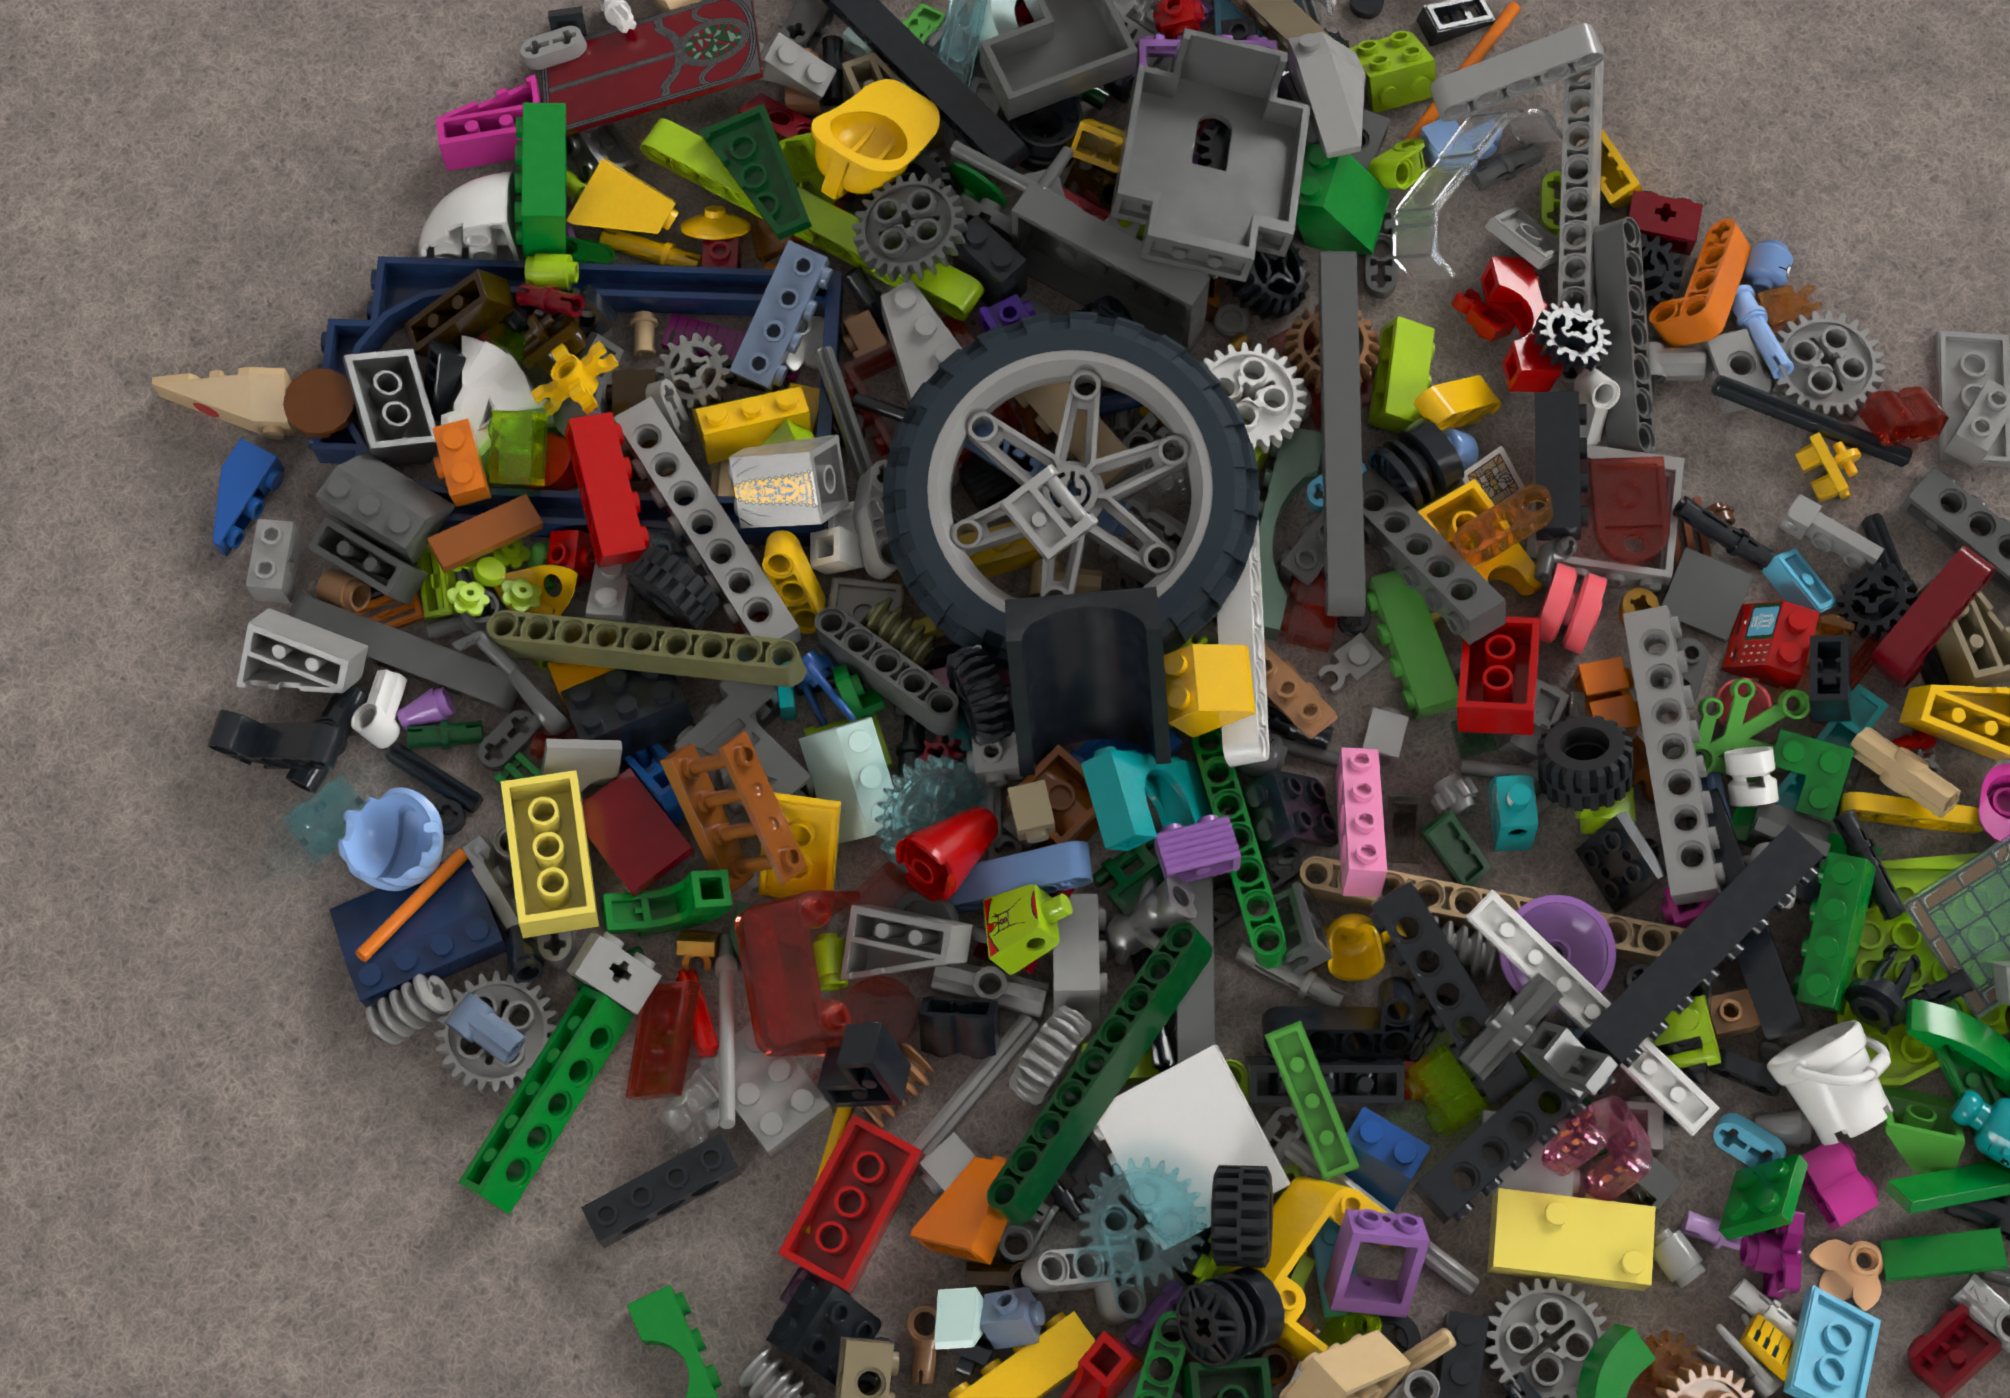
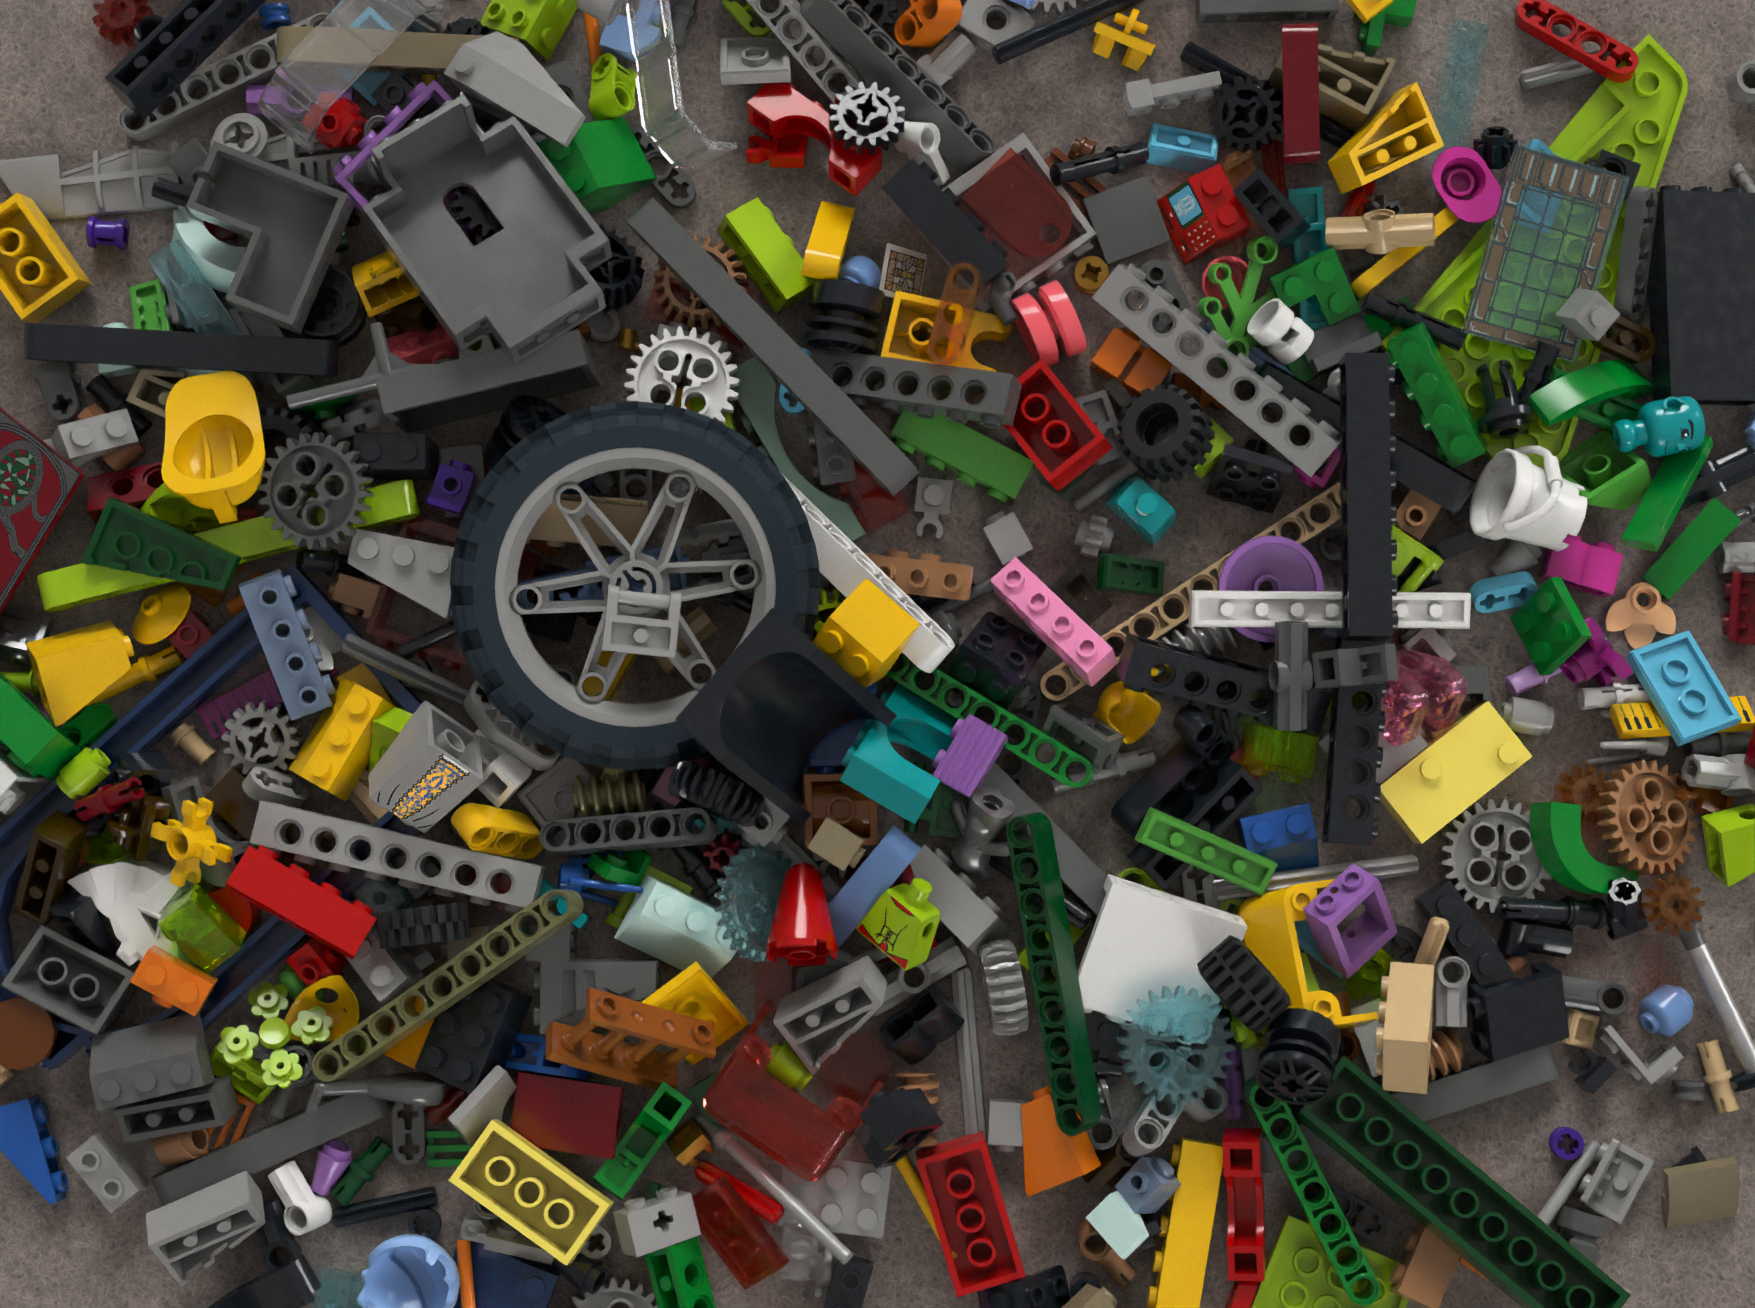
camera: 50 degrees left, 15 degrees up
(485, 533) = (244, 1012): dark orange tile -> none

